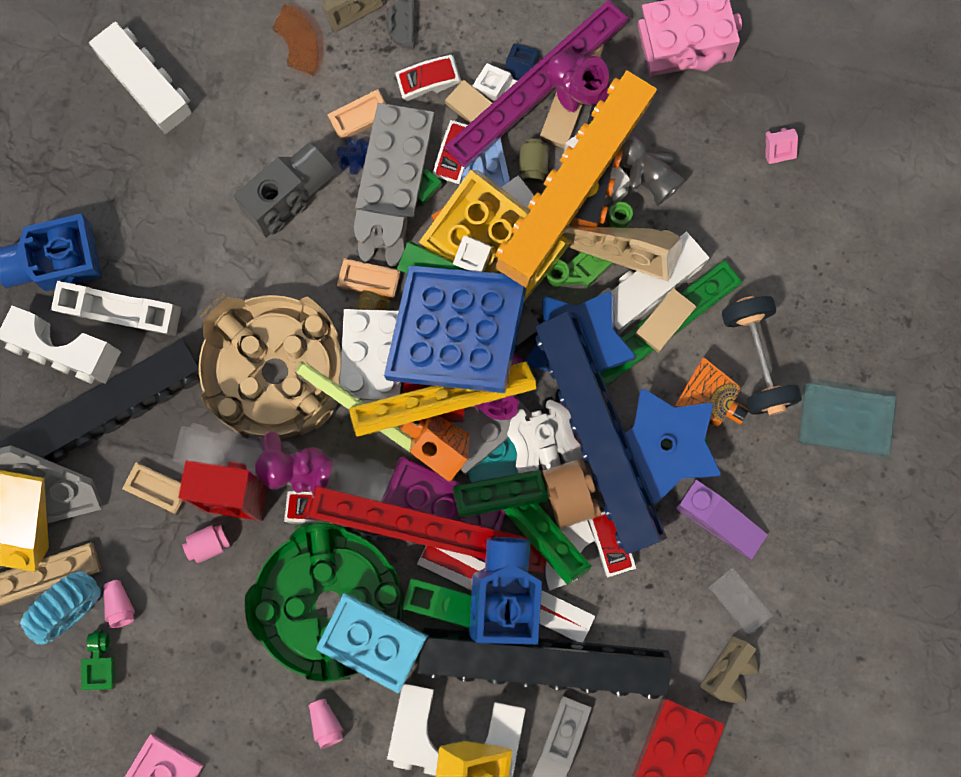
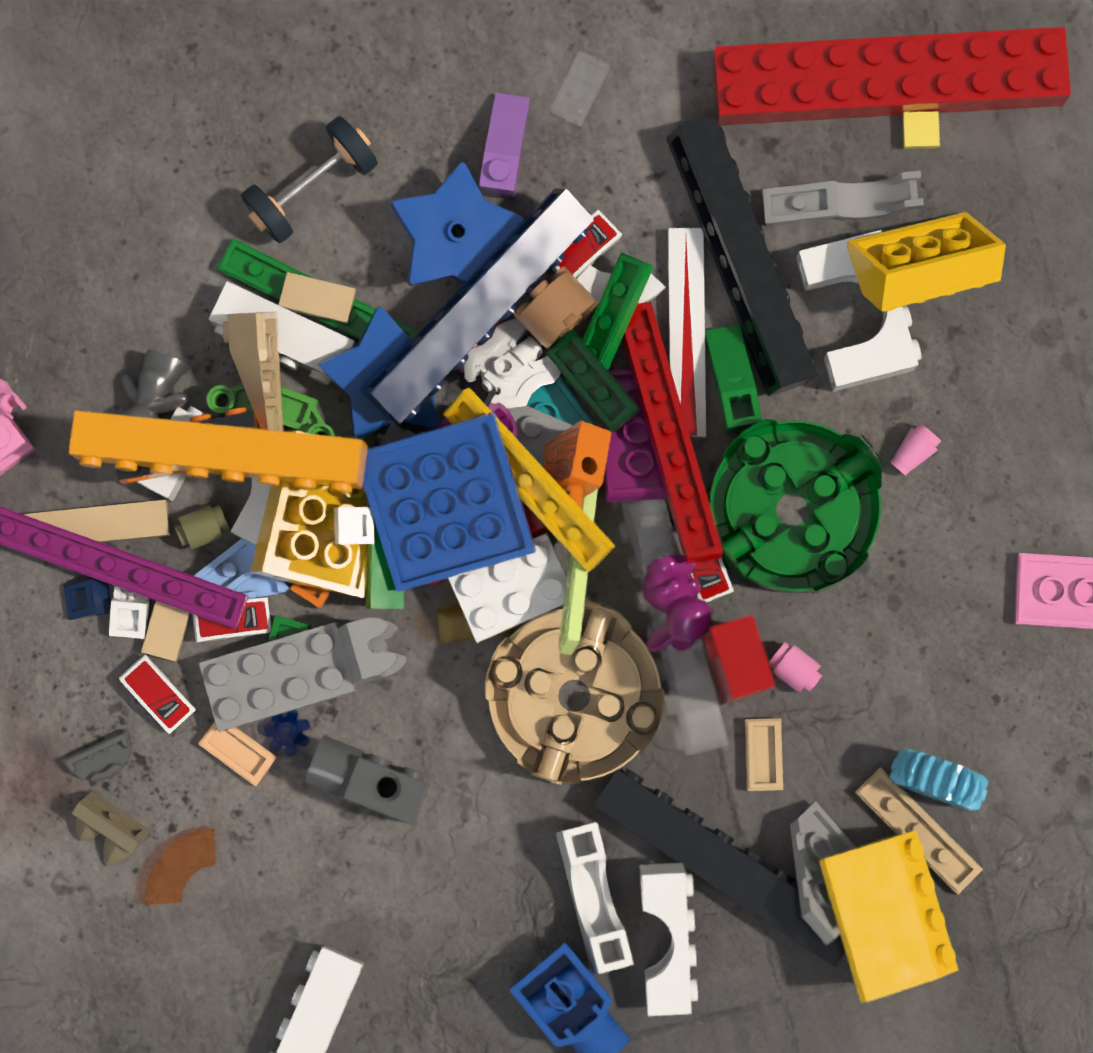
camera: 120 degrees left, 5 degrees up
(99, 671) = (980, 710): green plate -> none
(117, 605) = (905, 728): bright pink cone -> none
(364, 276) = (422, 643): light nougat tile -> none
(371, 642) = (812, 434): medium azure tile -> none
(505, 595) = (697, 322): blue brick -> none
(578, 80) = (95, 509): magenta animal -> none
(714, 387) = (370, 216): torso -> none
(722, 678) = (663, 71): dark tan tile -> none
(781, 145) = (55, 264): bright pink tile -> none
(846, 420) = (332, 64): clear light blue tile -> none

